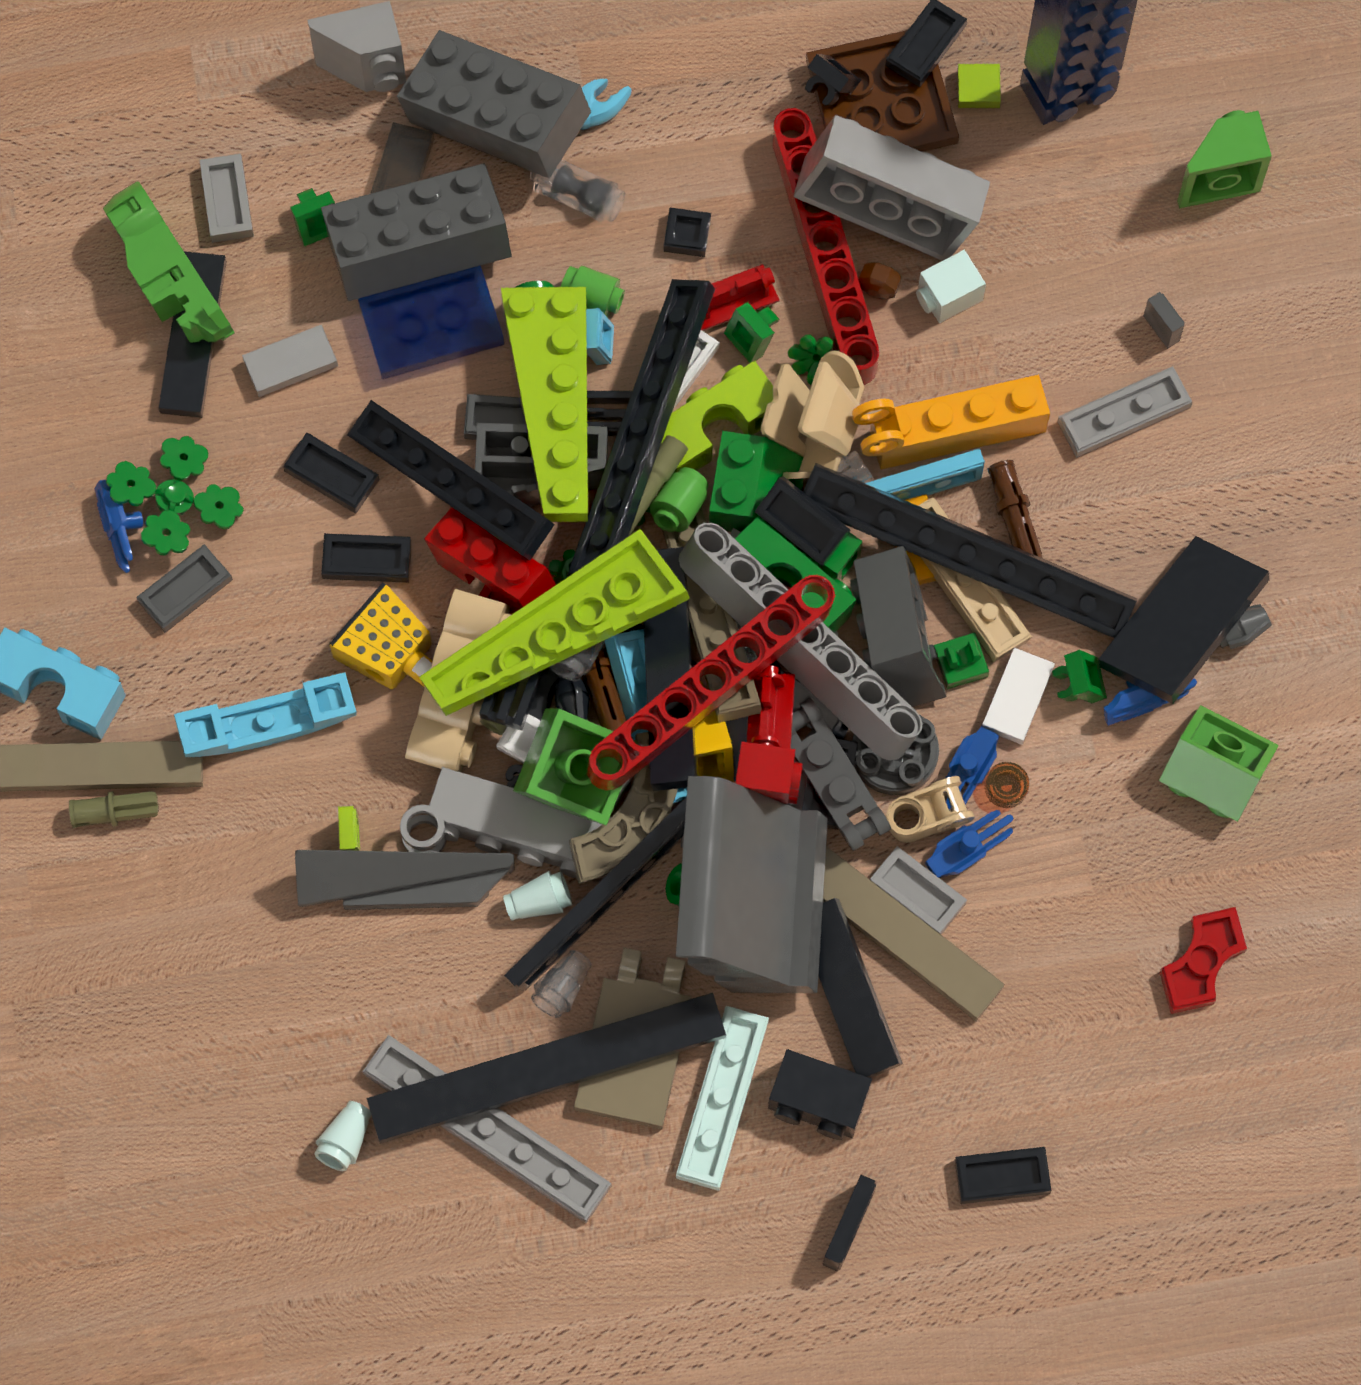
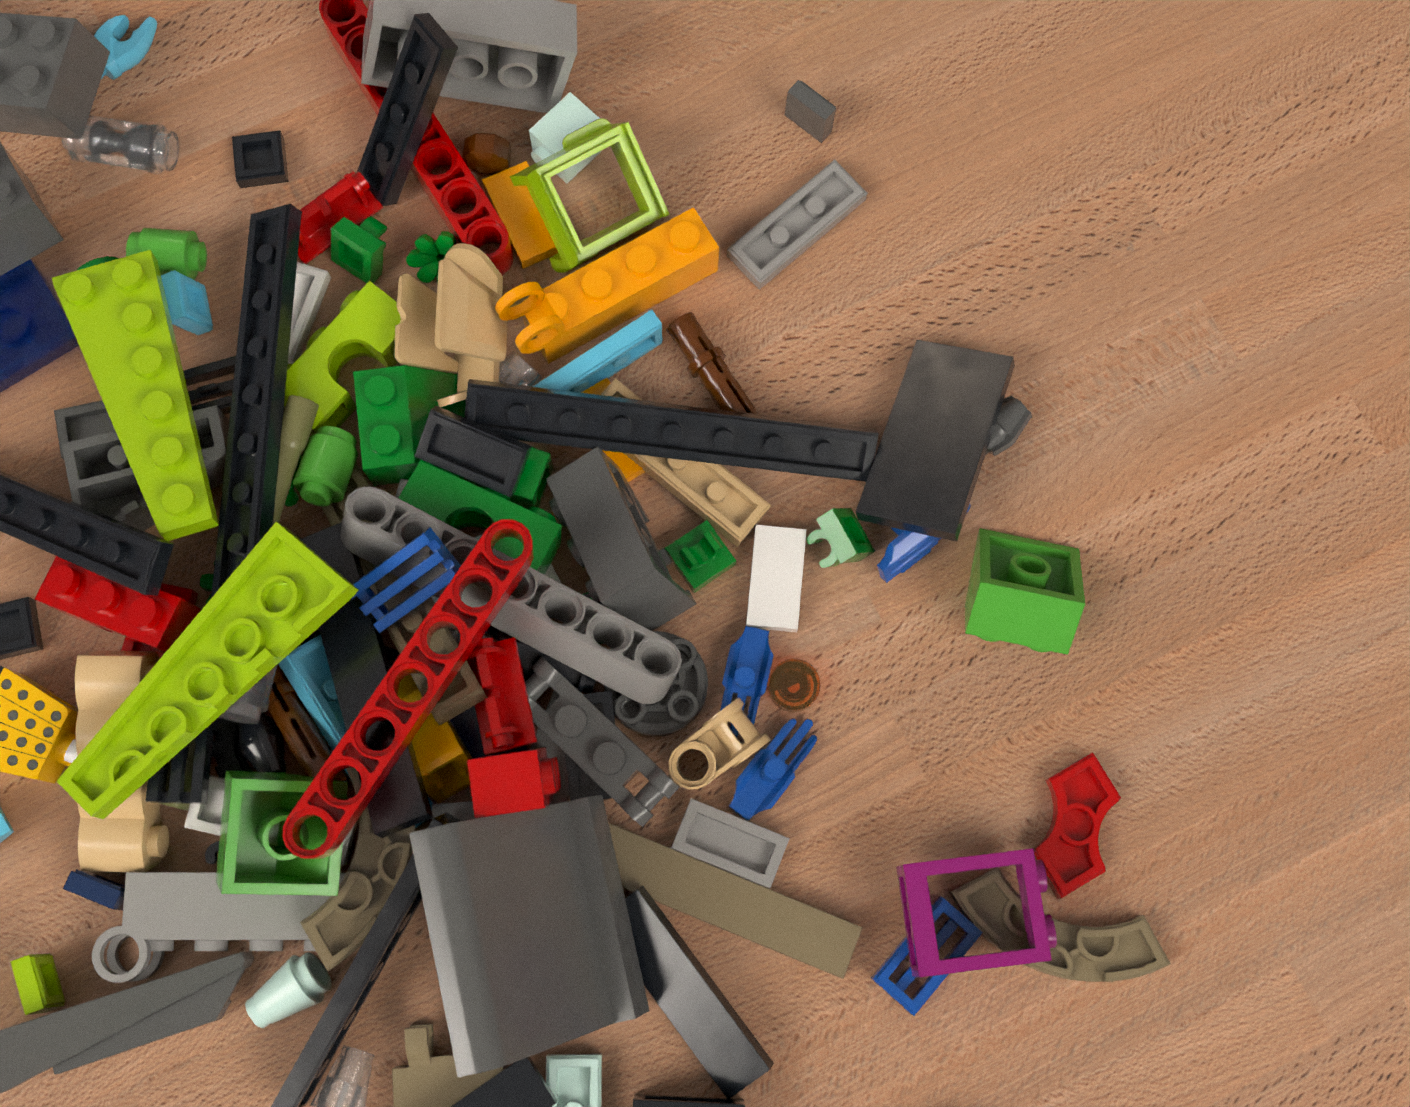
camera: 20 degrees left, 5 degrees up
(413, 778) = (96, 888): none -> dark blue tile
(692, 615) = (374, 603): none -> blue tile
(825, 231) = (407, 108): none -> black tile
(897, 340) = (520, 216): none -> light orange tile
(958, 299) = (577, 147): none -> lime piece
(1018, 1042) = (896, 990): none -> blue tile
(1090, 1030) = (920, 922): none -> magenta window
(1153, 1046) = (1081, 952): none -> dark tan tile

